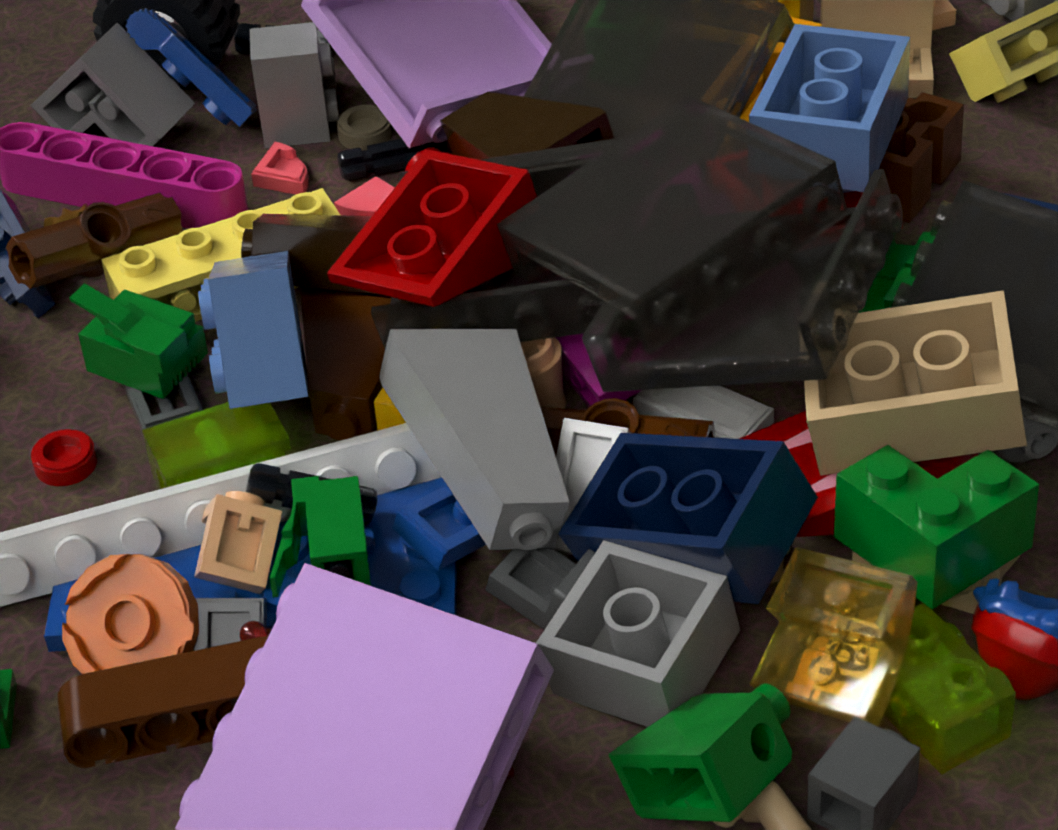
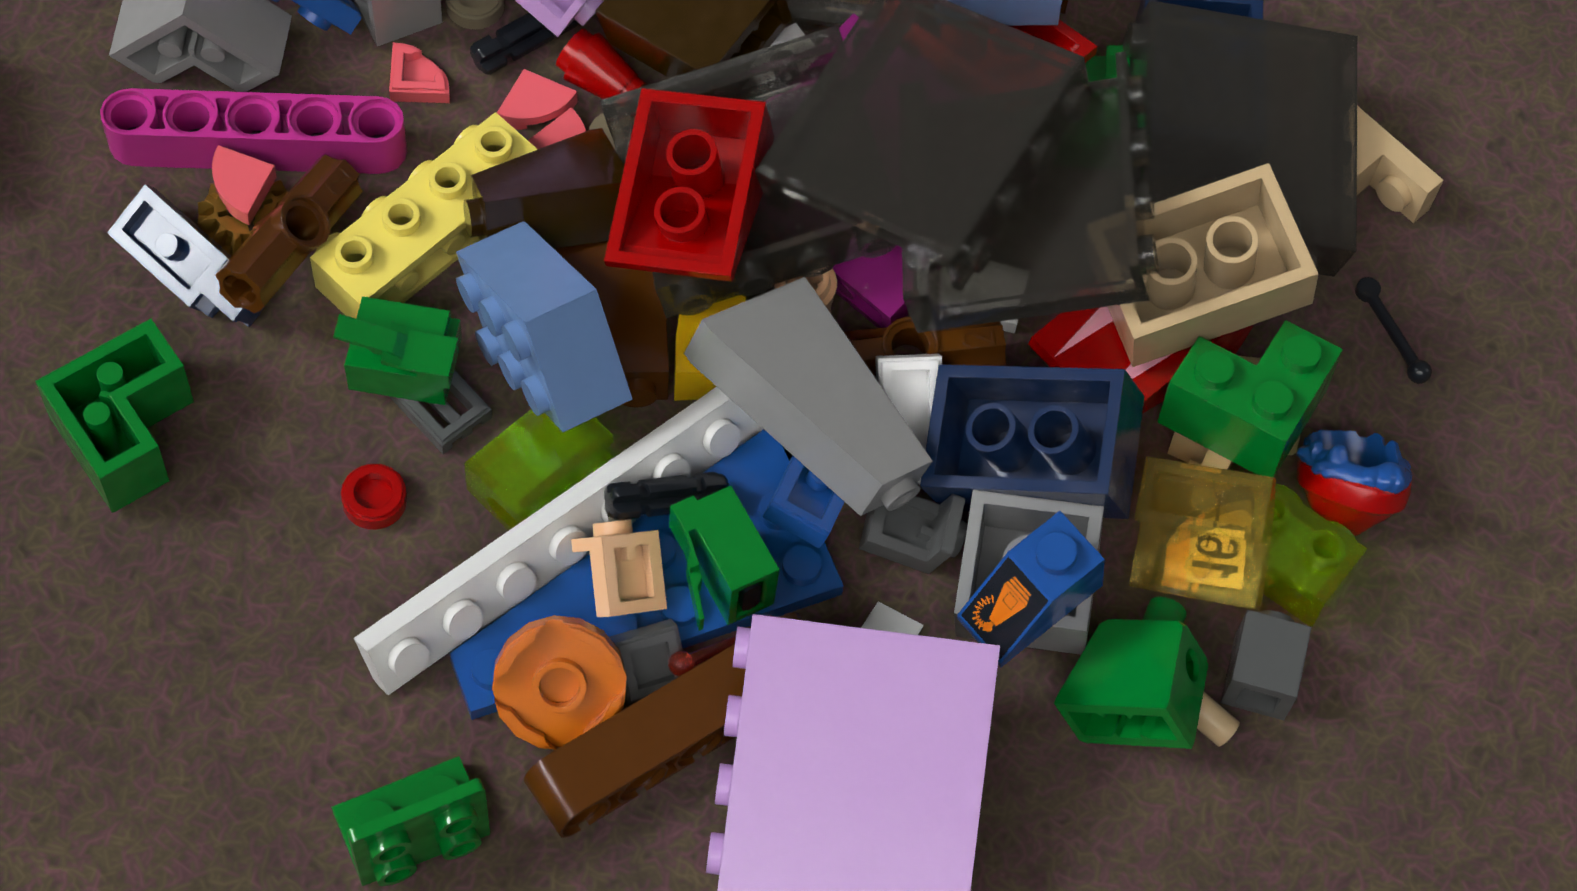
camera: 30 degrees left, 20 degrees up
(77, 194) = (241, 182): none -> coral tile
(615, 620) = (1033, 587): none -> blue slope

